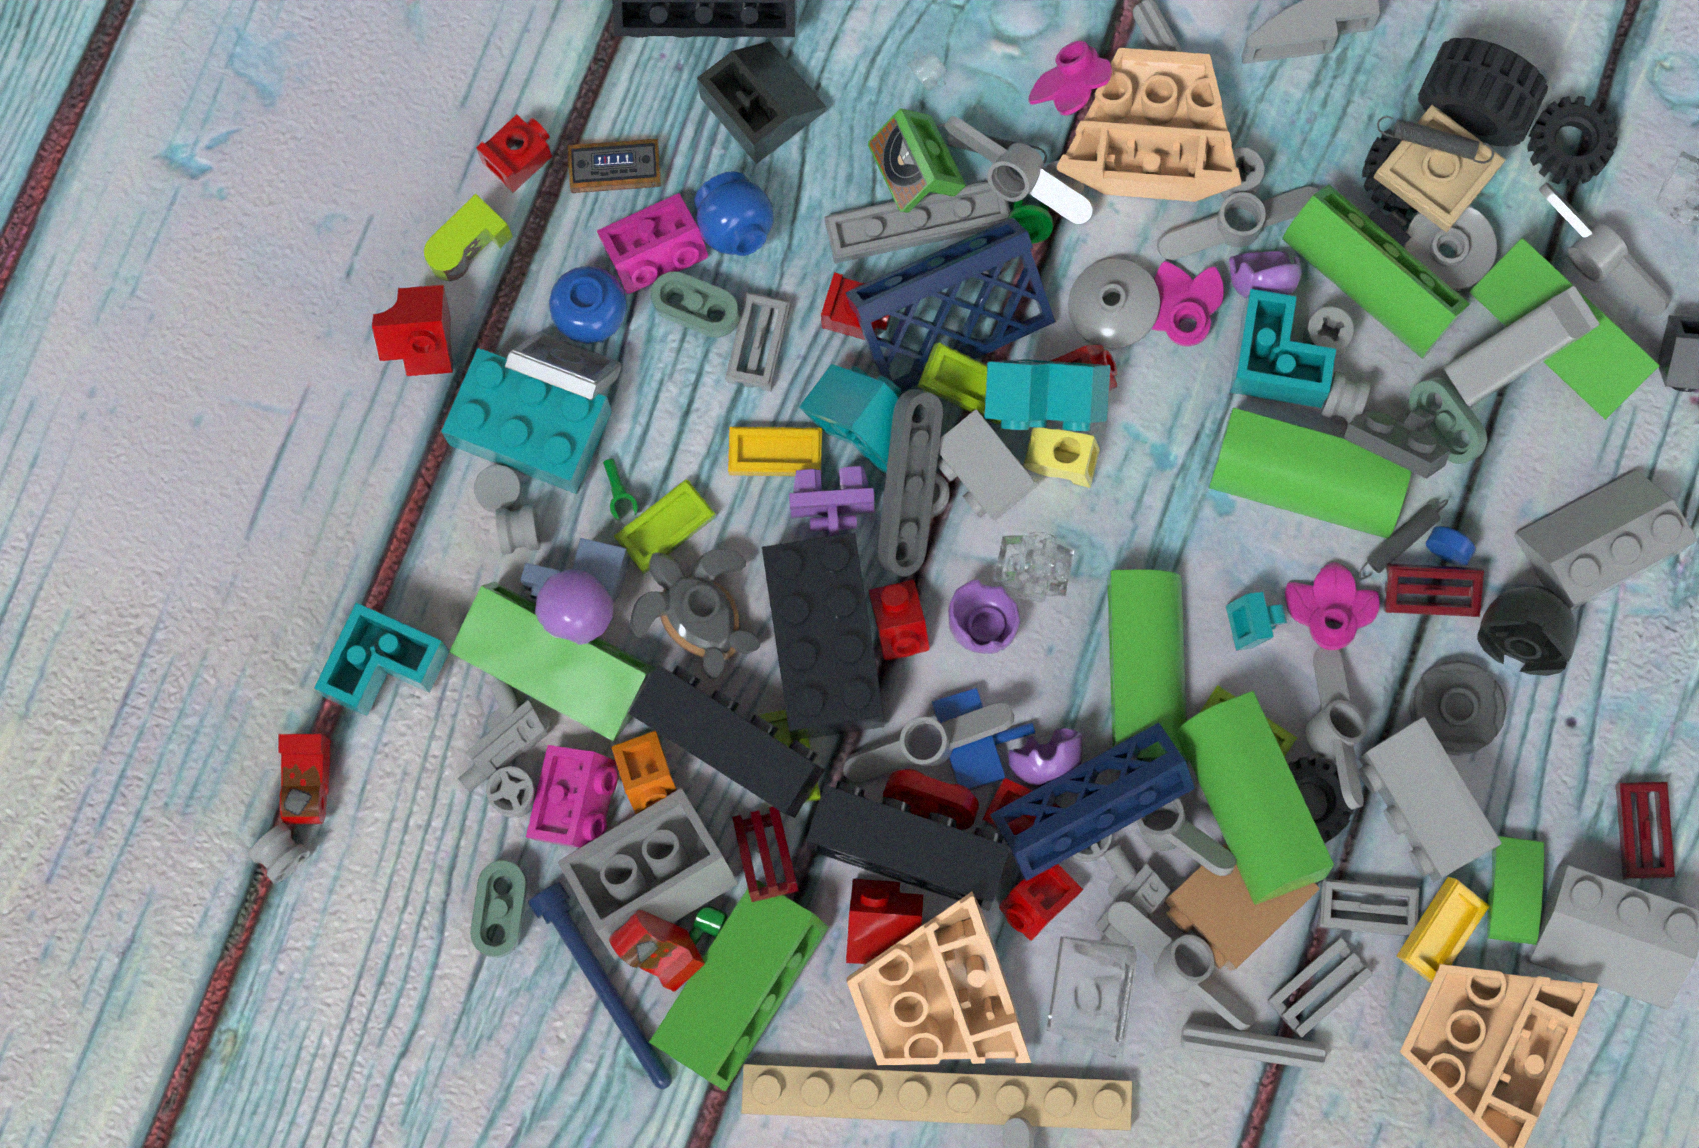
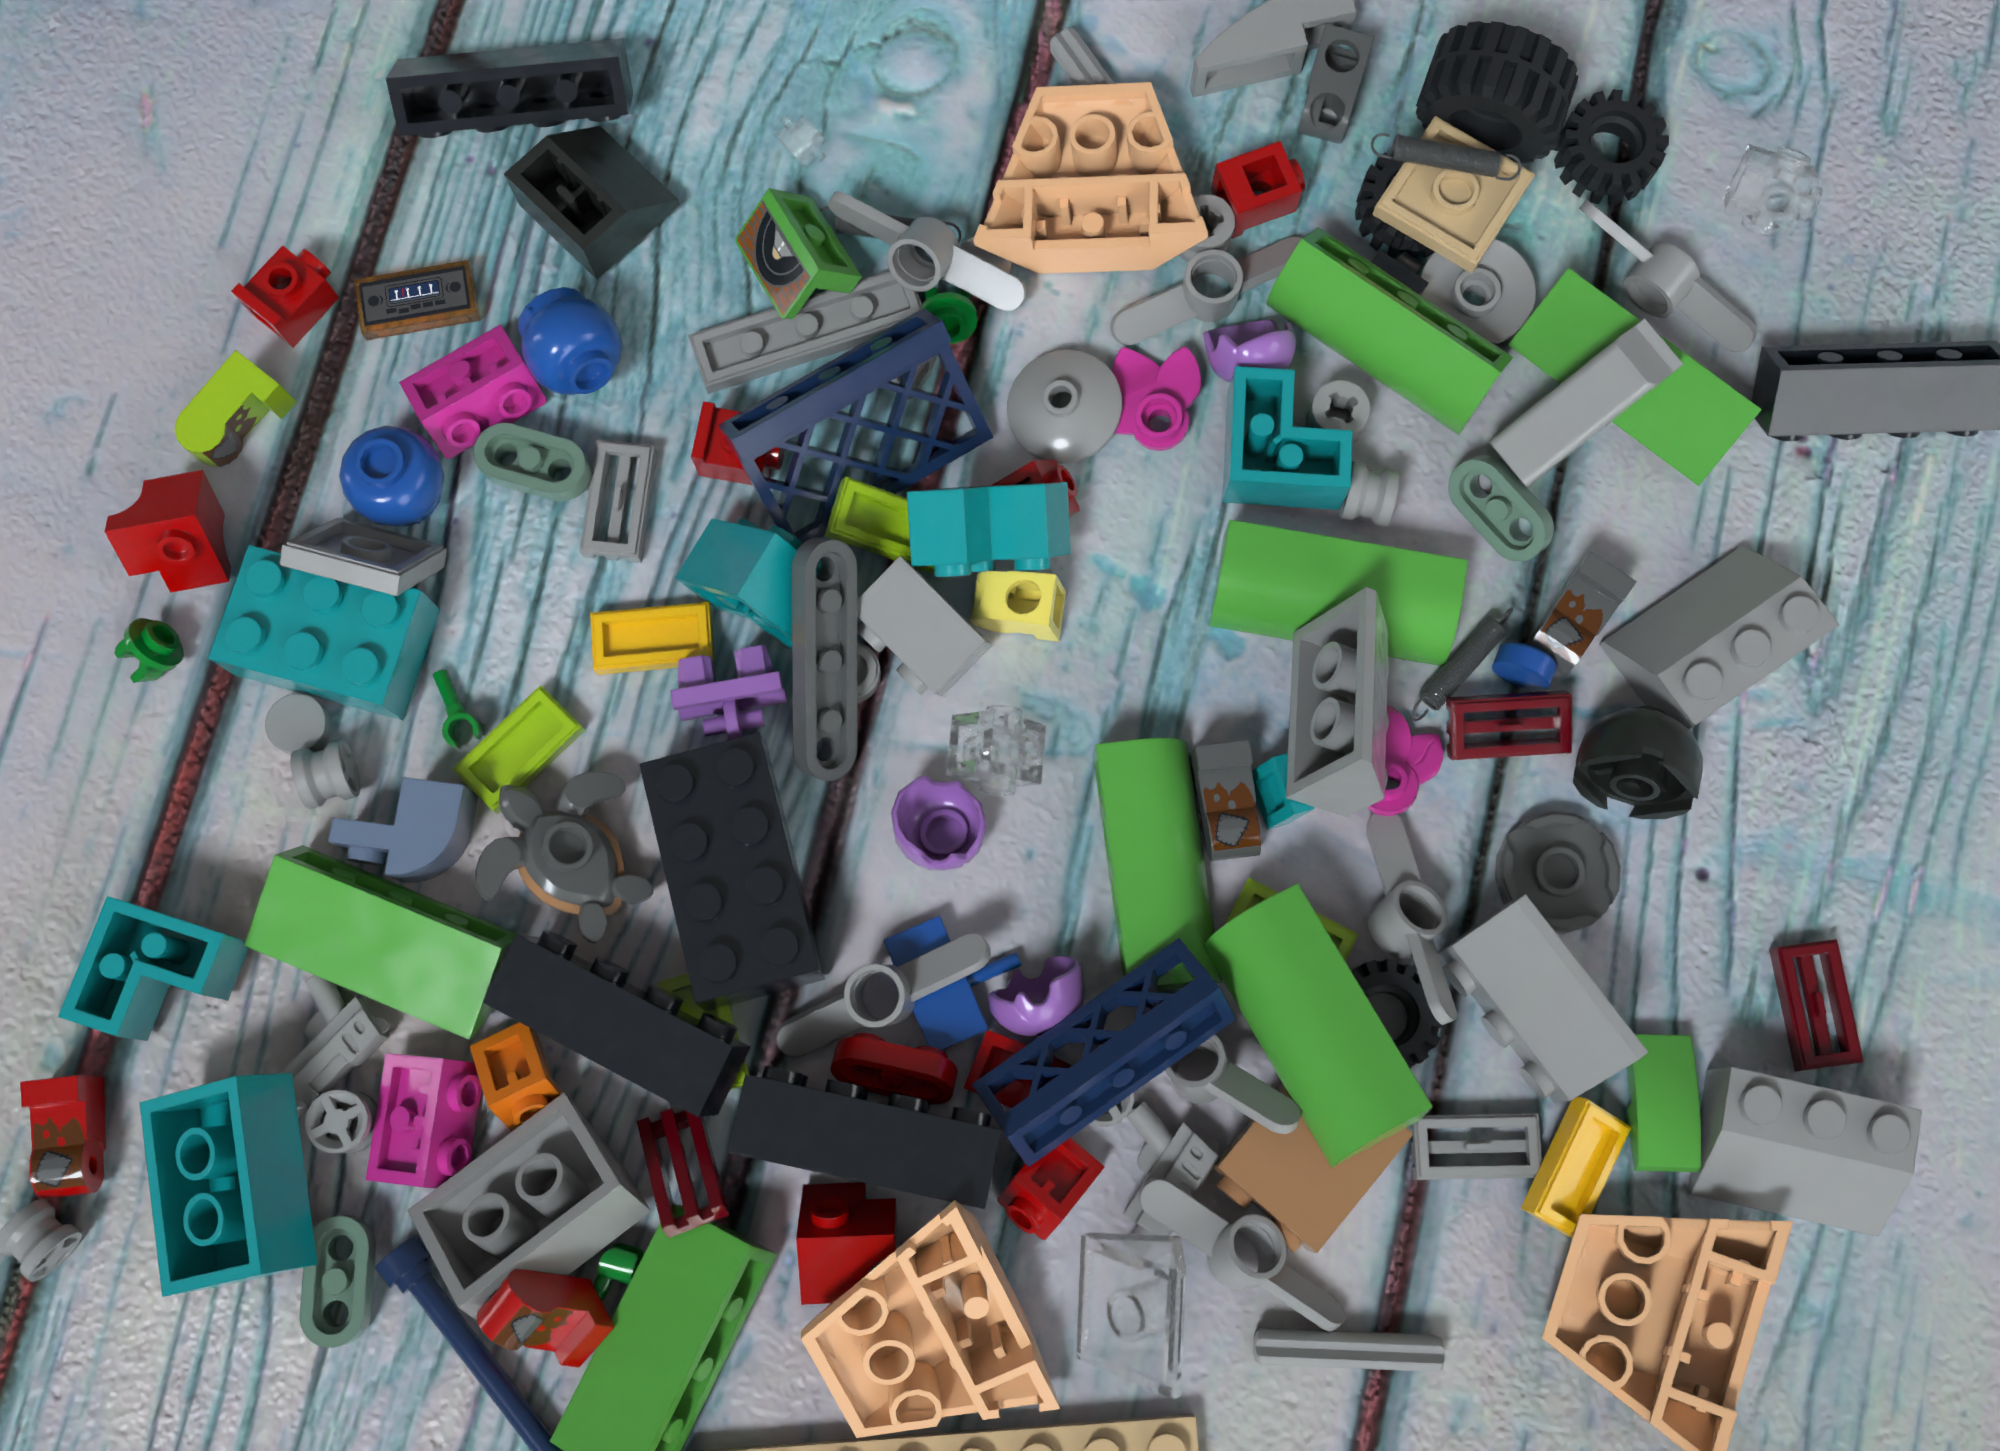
camera: 10 degrees left, 0 degrees up
(394, 415) = (155, 647): none -> green plate
(428, 825) = (227, 1183): none -> teal brick
(574, 606) = (398, 869): medium lavender hair -> none
(899, 620) = (830, 838): red bracket -> none
(1071, 82) = (983, 136): dark pink plate -> none
(1207, 623) = (1226, 799): none -> leg
(1289, 131) = (1263, 171): none -> red brick
(1302, 562) = (1340, 708): none -> light grey slope
(1350, 961) = (1447, 1275): light grey tile -> none
(1356, 66) = (1334, 83): none -> dark grey leg
(1399, 441) = (1446, 541): dark grey hinge -> none
(1500, 508) = (1581, 611): none -> leg

